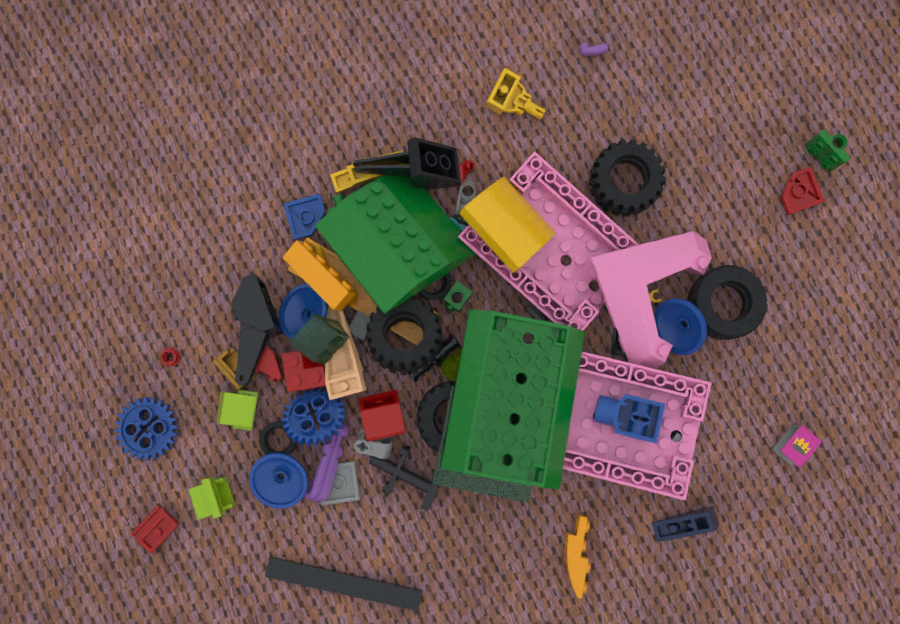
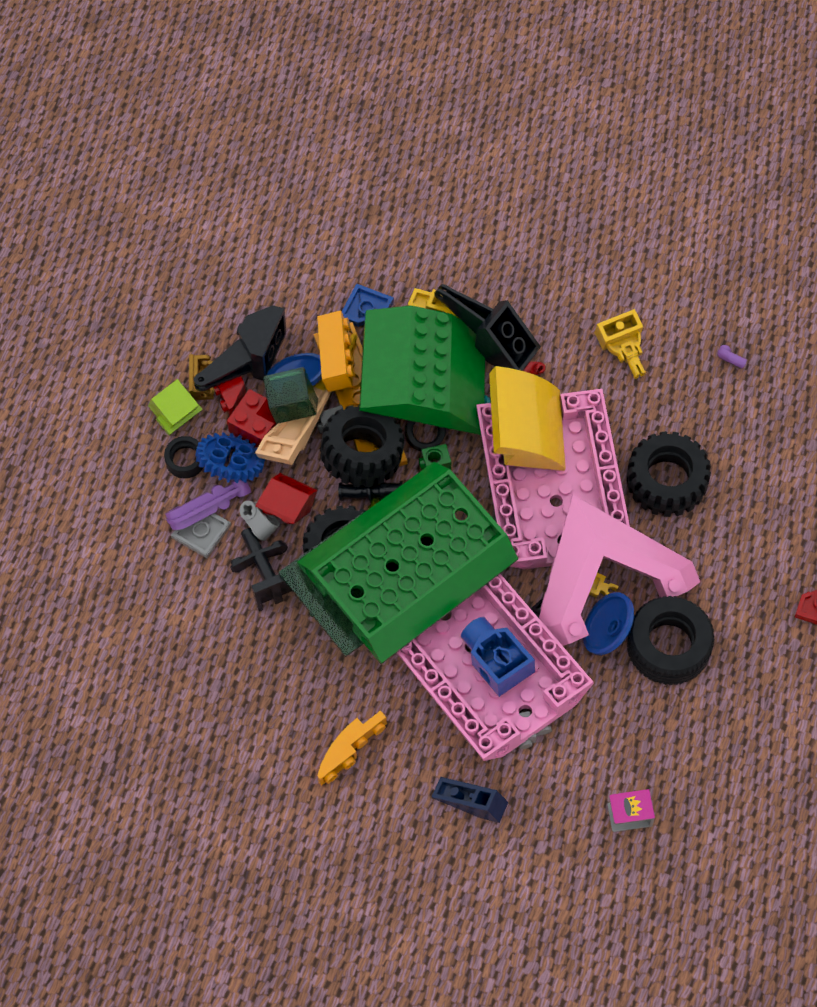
camera: 40 degrees right, 20 degrees down
(135, 416) = (89, 367): blue gear -> none
(155, 529) = (23, 448): red plate -> none
(164, 357) = (158, 325): red plate -> none
(212, 497) = (91, 456): lime plate -> none
(271, 487) = (145, 479): blue dish -> none
(343, 583) = (132, 613): black tile -> none

